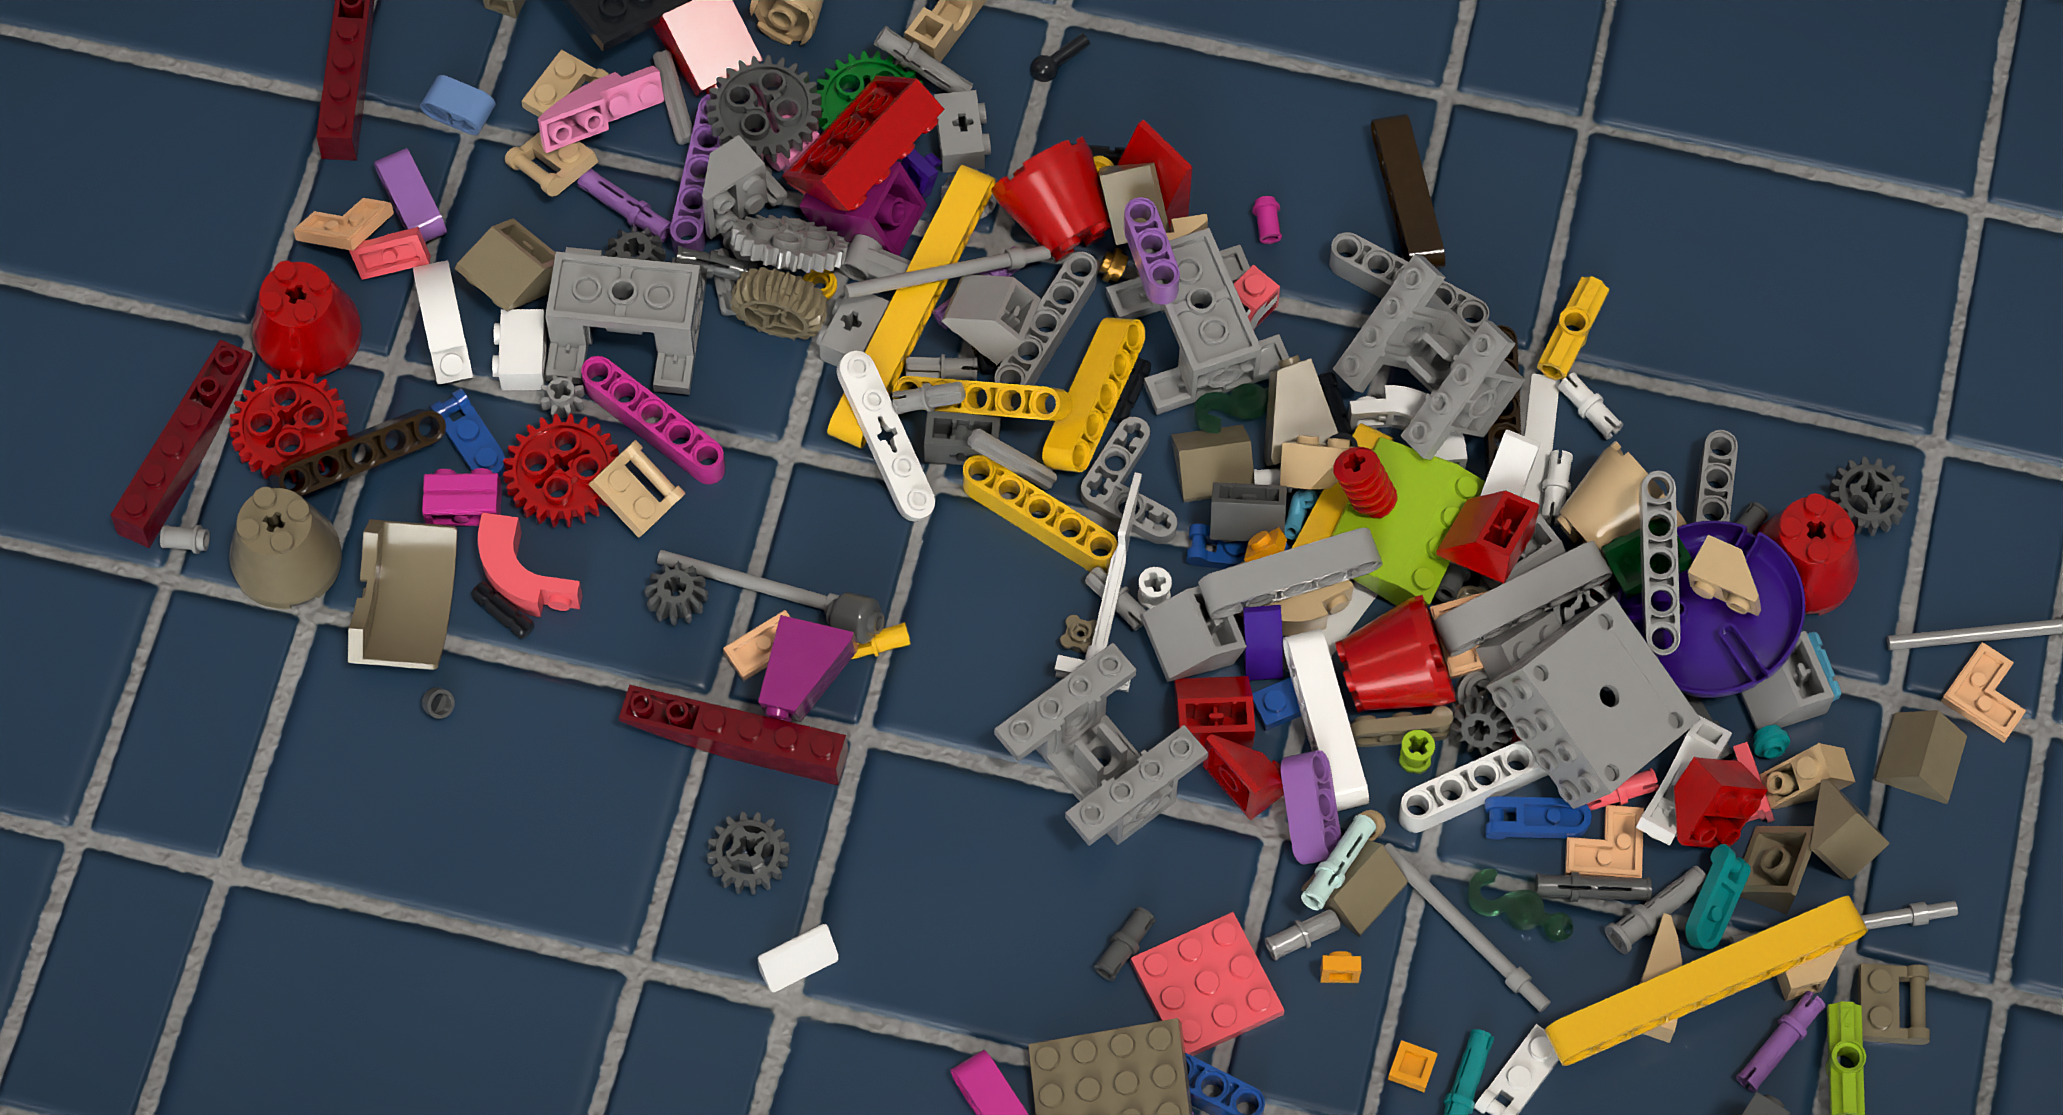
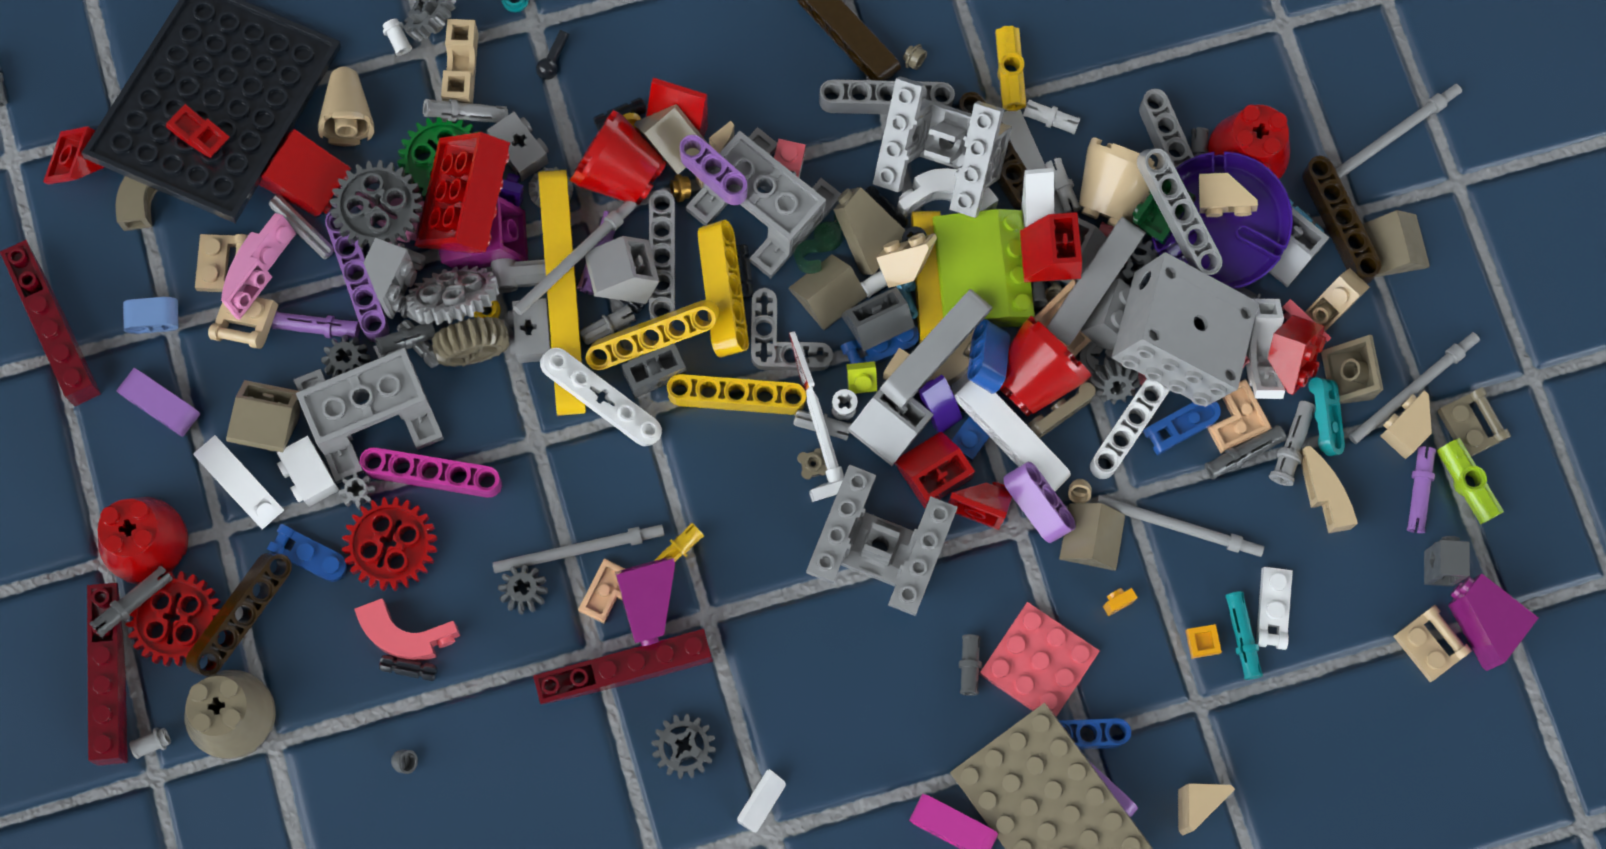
camera: 35 degrees left, 10 degrees up
(240, 379) = (132, 600): none -> dark grey pin
(346, 230) = (126, 455): light nougat tile -> none
(391, 253) = (170, 452): coral plate -> none
(406, 594) = (335, 699): dark tan panel -> none
(460, 498) = (330, 604): dark pink brick -> none
(629, 496) = (448, 538): tan plate -> none
(856, 614) = (659, 540): dark grey head -> none
(928, 397) = (618, 355): light grey axle -> none
(1012, 459) = (698, 367): light grey axle -> none
(1191, 567) = (862, 377): none -> neon yellow plate
(1265, 544) = (907, 338): light orange plate -> none
(1267, 219) = (764, 99): dark pink pin -> none
(1302, 934) = (1080, 591): light grey axle -> none
(1331, 872) = (1081, 540): light aqua pin -> none
(1346, 613) = (988, 356): none -> blue beam
(1365, 482) = (950, 257): red piece -> none
(1419, 742) = (1072, 424): lime bush -> none
(1469, 261) = (914, 56): none -> dark tan plate
(1522, 908) = (1209, 493): clear green piece -> none
(1705, 980) = (1361, 480): yellow beam -> none
(1770, 741) = (1300, 288): teal plate -> none
(1843, 833) = (1385, 326): dark tan slope -> none
(1870, 676) = (1344, 208): none -> dark brown beam
(1878, 486) = (1264, 80): dark grey gear -> none
(1976, 696) = (1405, 184): light nougat tile -> none

